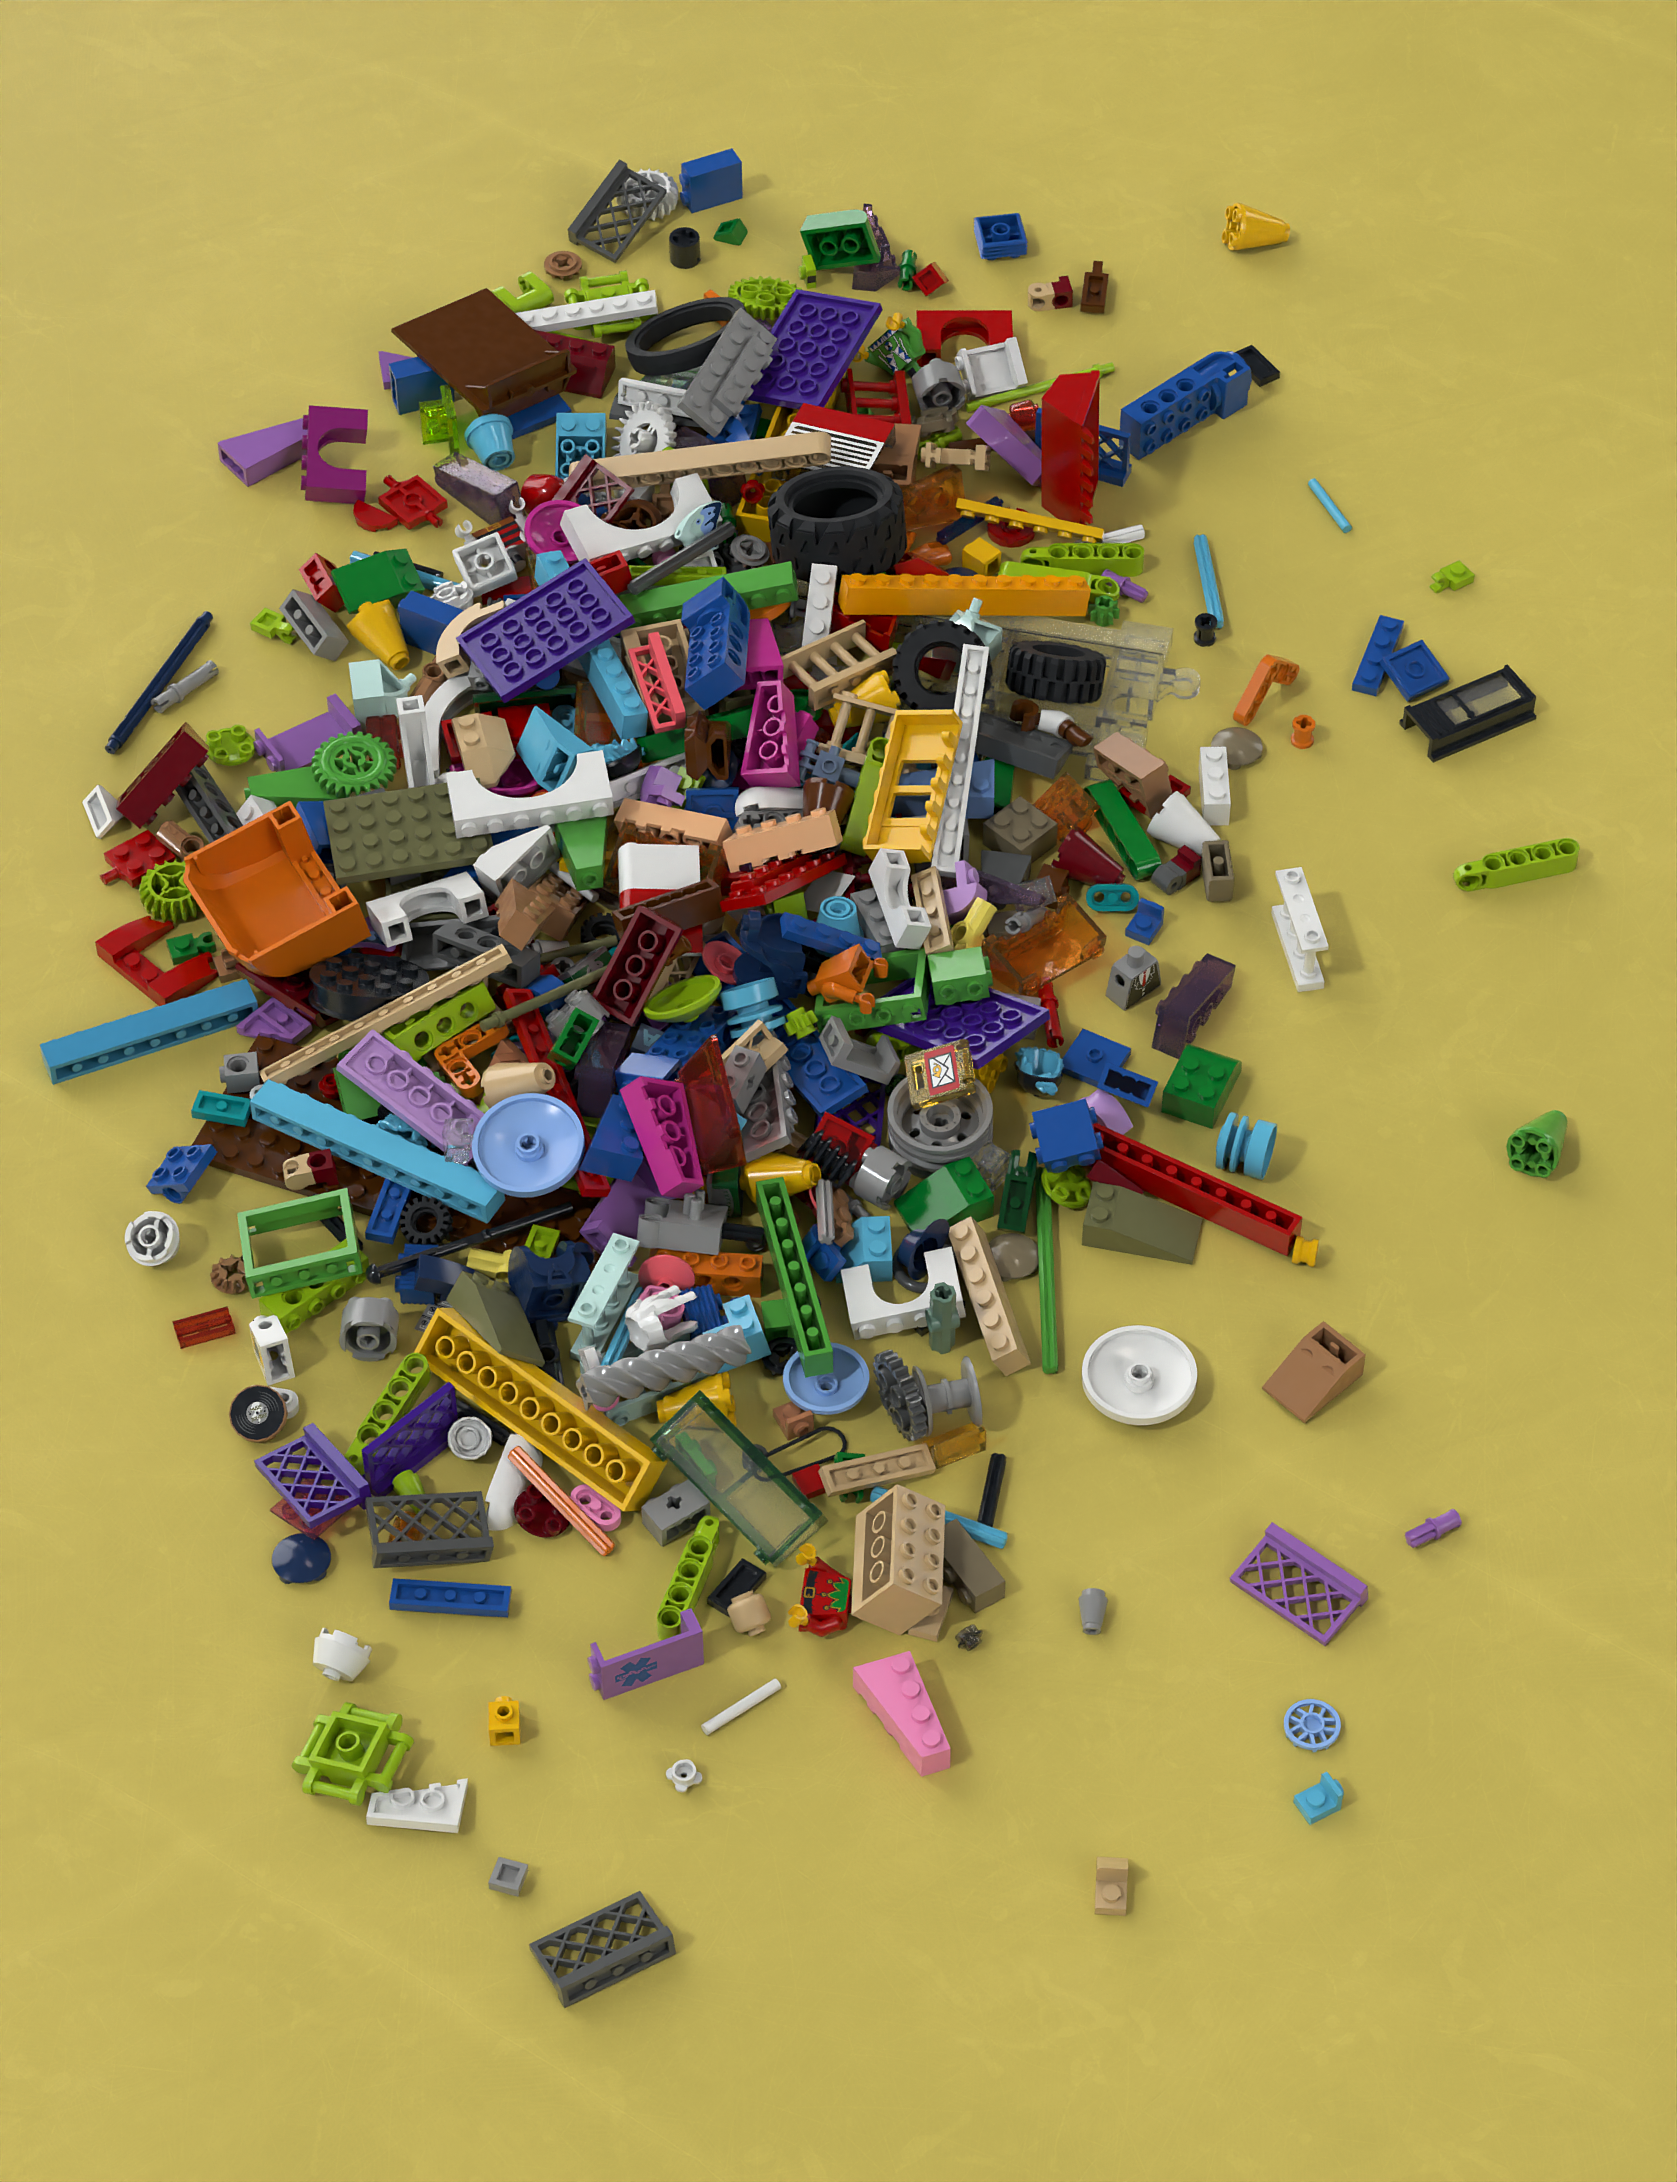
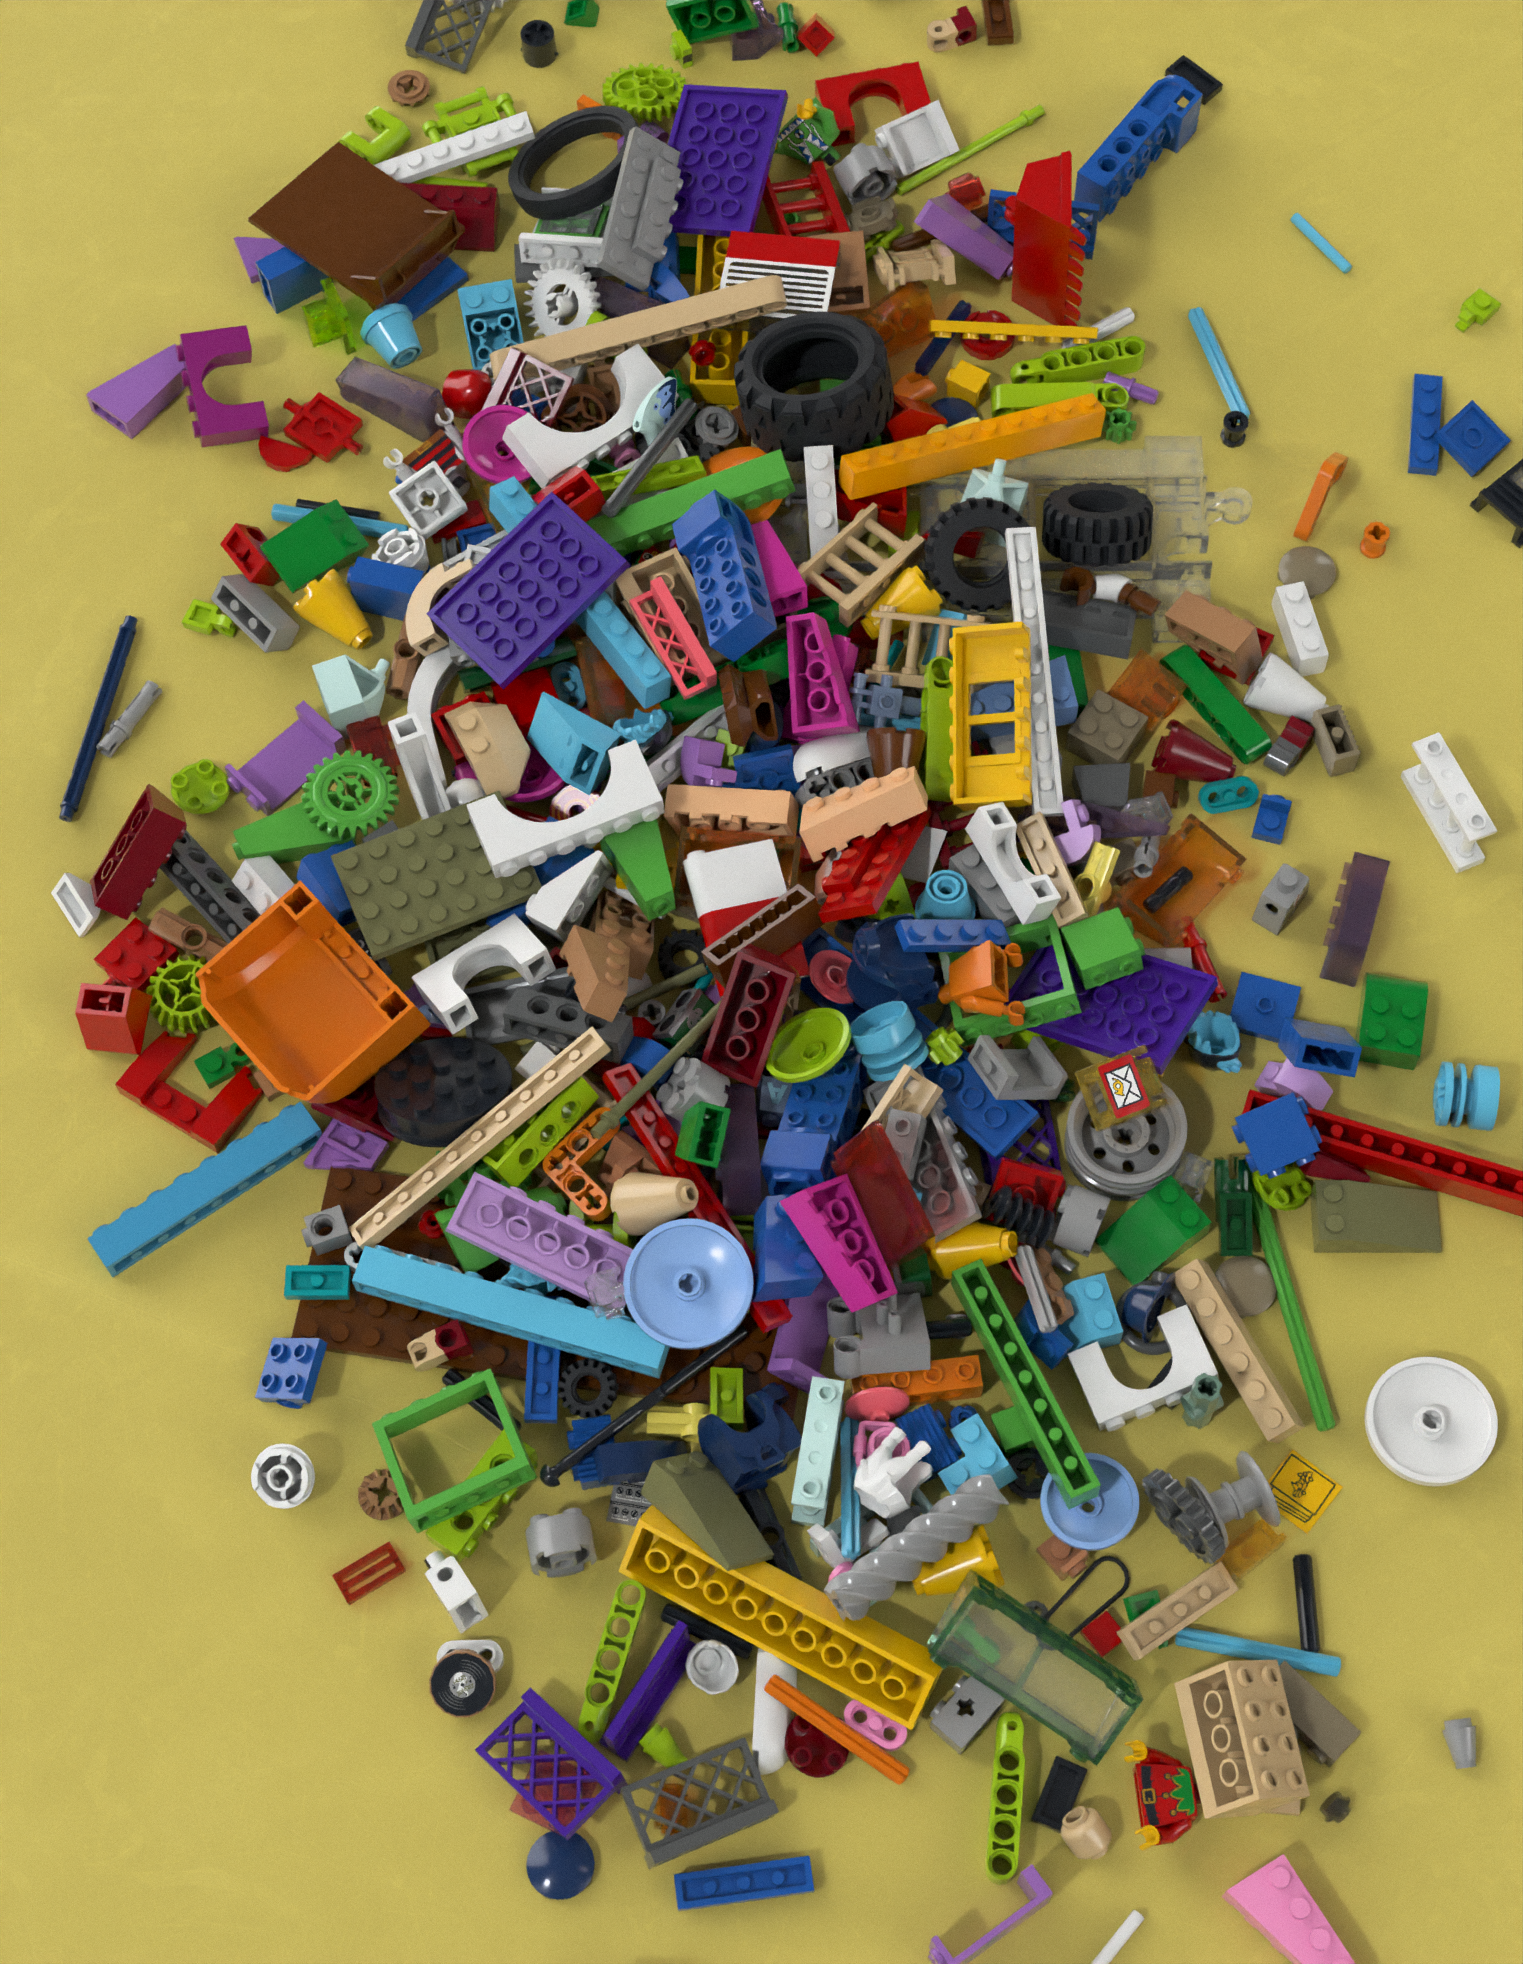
camera: 10 degrees left, 15 degrees up
(107, 891) = (112, 1017): none -> red slope
(1013, 1413) = (1302, 1491): none -> yellow sticker
(1036, 954) = (1168, 889): none -> black axle

